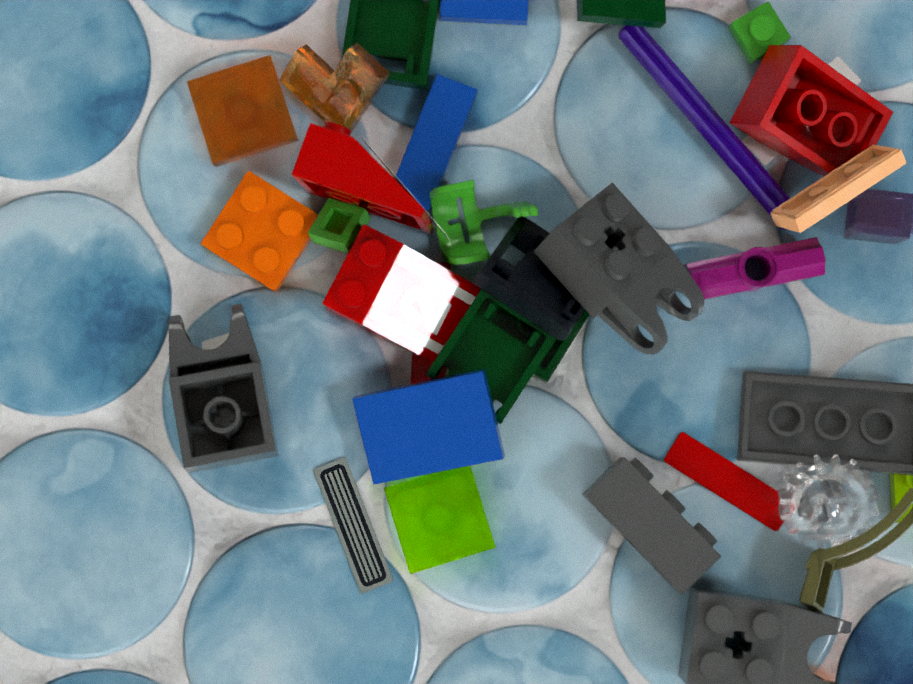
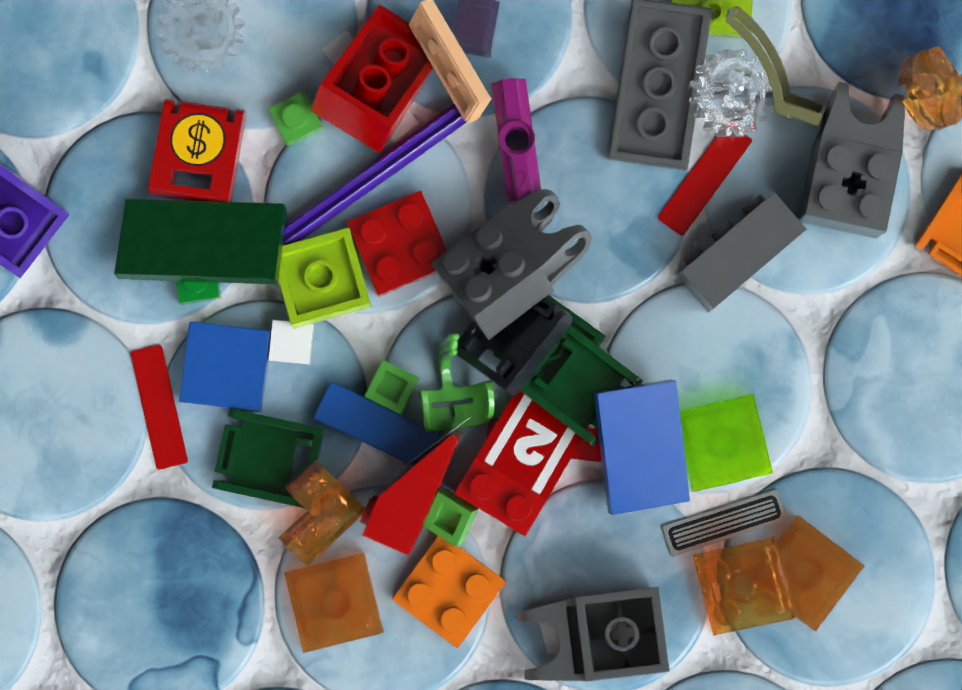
camera: 85 degrees left, 0 degrees up
(284, 548) = (744, 586): none -> clear orange plate
(303, 617) = (815, 571): none -> clear orange plate
(475, 154) = (392, 387): none -> bright green plate
(516, 45) = (291, 344): none -> white tile
(587, 70) = (322, 278): none -> lime plate
(633, 150) = (398, 242): none -> red plate

